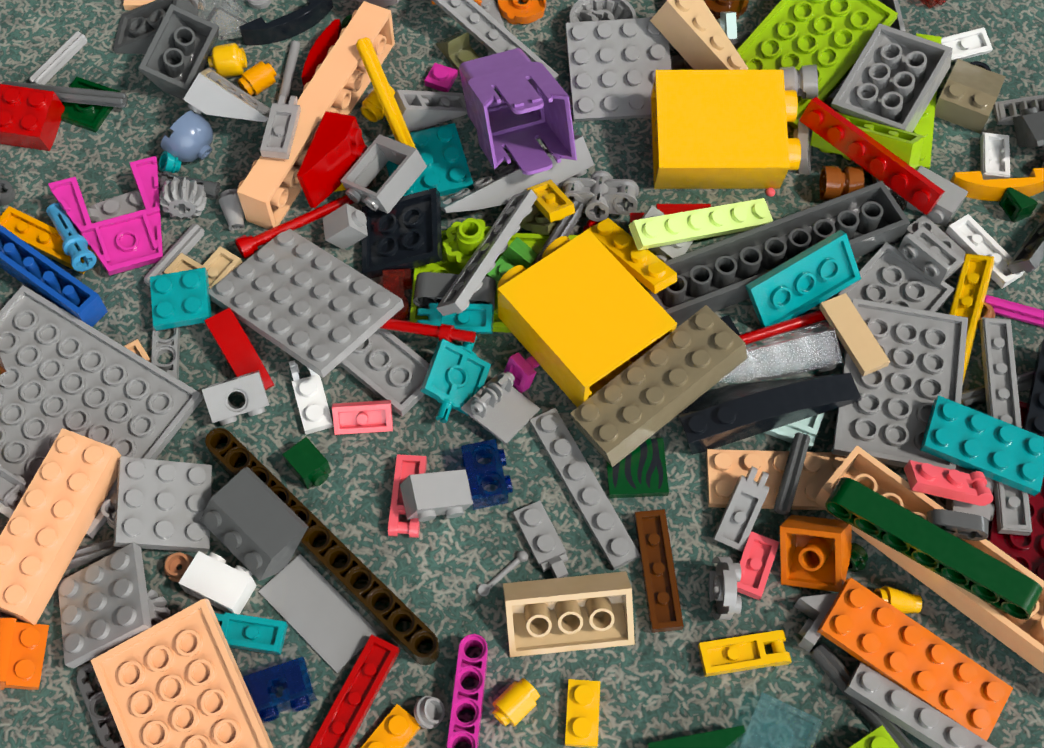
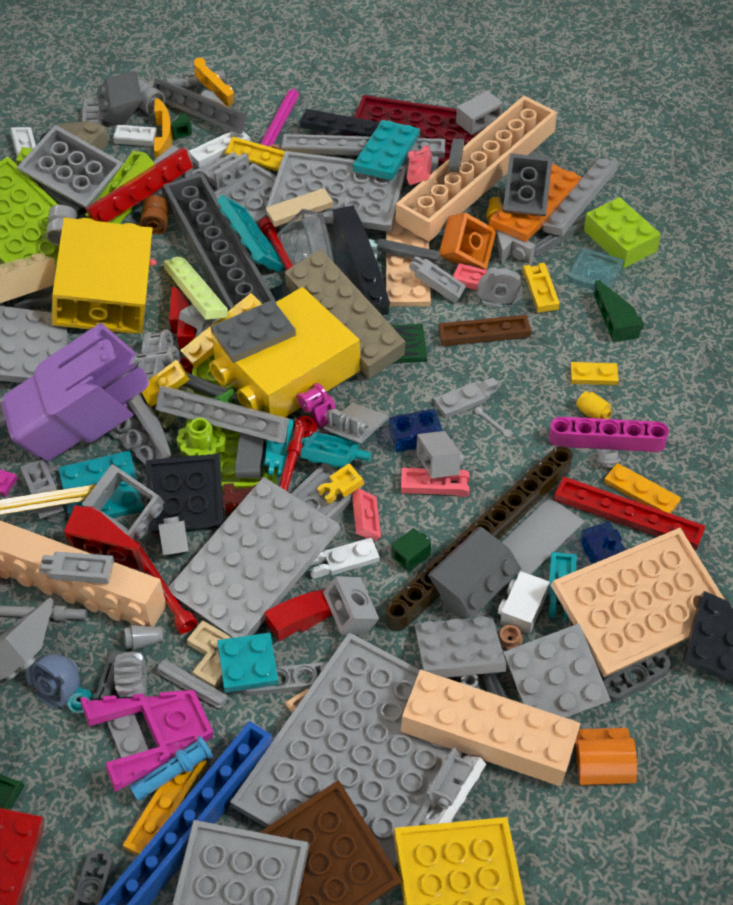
camera: 90 degrees left, 10 degrees down
(372, 108) = (28, 522): yellow brick -> none
(398, 387) = (343, 481): none -> yellow plate
(498, 355) = (309, 425): none -> red plate
(520, 349) = (312, 397): none -> dark pink bush
(569, 614) = (522, 378): tan slope -> none
(584, 489) = (419, 374): light grey plate -> none
(595, 268) = (253, 331): none -> dark grey plate
(915, 632) = (527, 184): none -> dark grey slope
(934, 548) = (472, 169): dark green beam -> none

